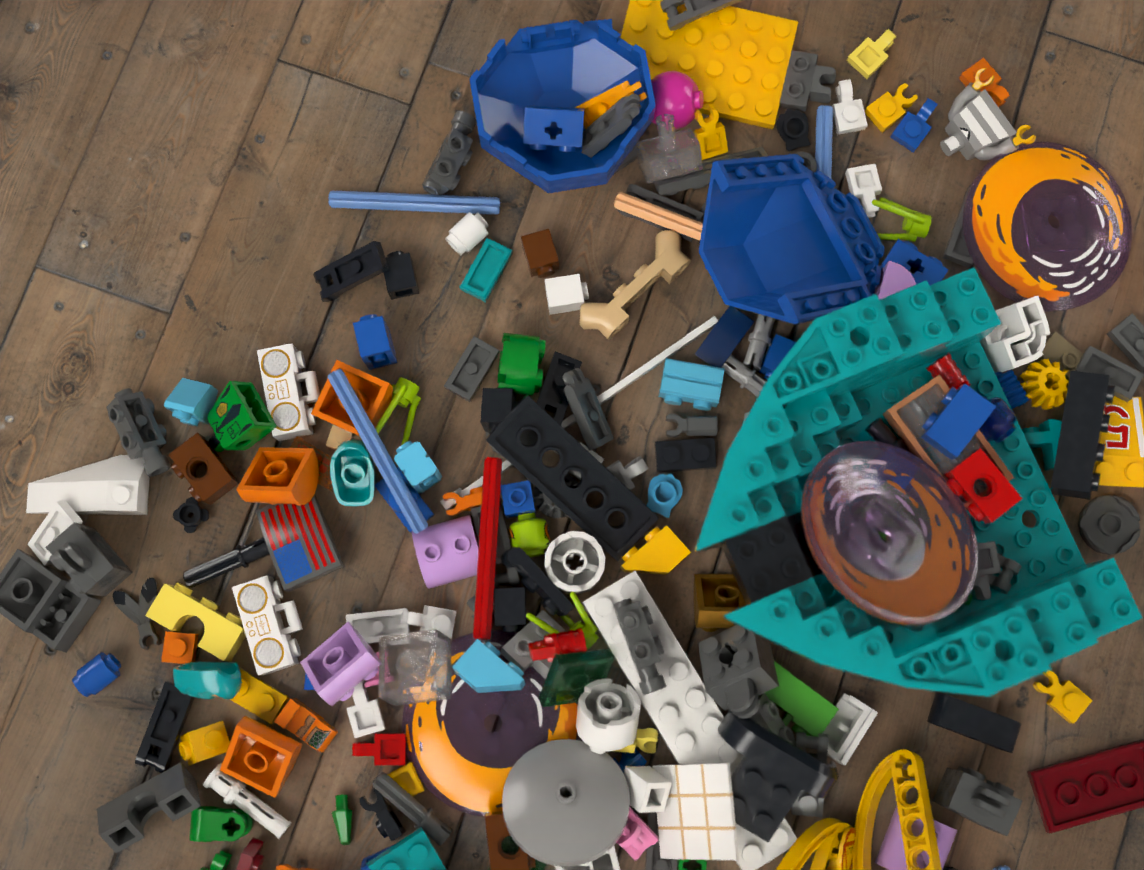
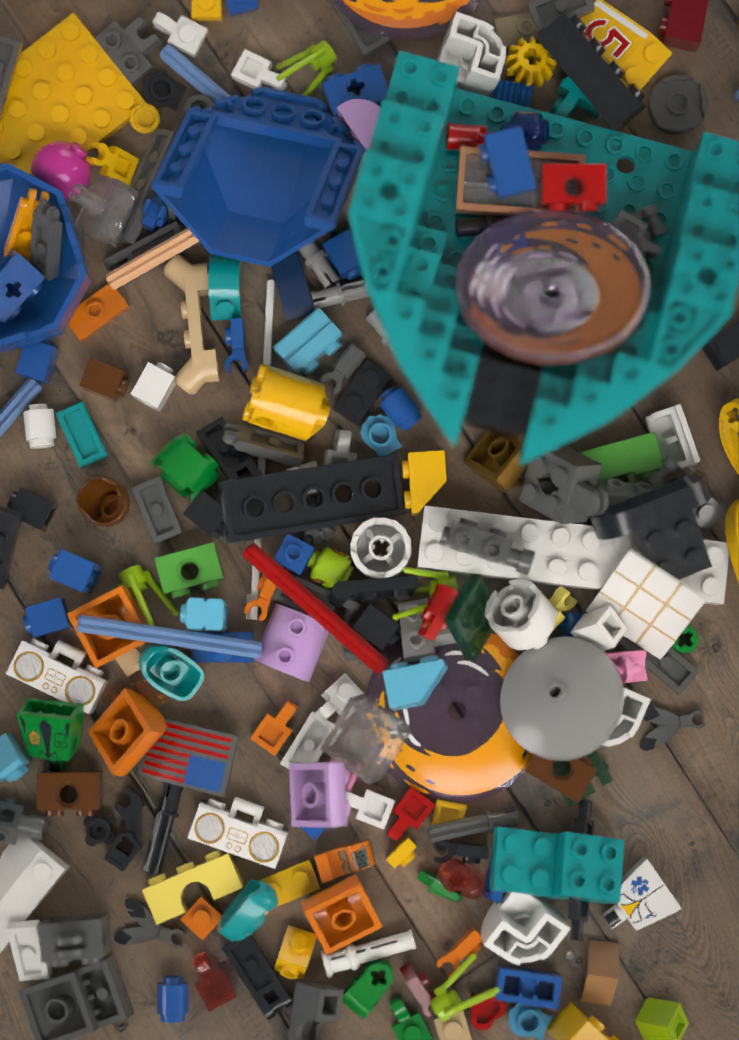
camera: 50 degrees left, 5 degrees up
(131, 698) = (214, 986): none -> clear red plate
(220, 531) = (133, 818): none -> black piece
(324, 349) = (47, 618): none -> blue brick
(346, 768) = (402, 853): none -> yellow plate
(359, 826) = (456, 876): none -> clear red plate
(367, 590) = (273, 730): none -> orange plate
(435, 413) = (171, 568): none -> bright green brick
(446, 322) = (103, 501): none -> reddish brown hair
(516, 194) = (38, 361): none -> blue brick
(587, 209) = (97, 312): none -> orange plate
(630, 401) = (287, 403): none -> yellow cylinder
(650, 326) = (236, 337): none -> blue plate
(681, 287) = (224, 287): none -> teal brick
(695, 194) = (155, 214): none -> blue plate
(697, 493) = (400, 408): none -> blue brick
(762, 132) = (144, 118): none -> yellow plate

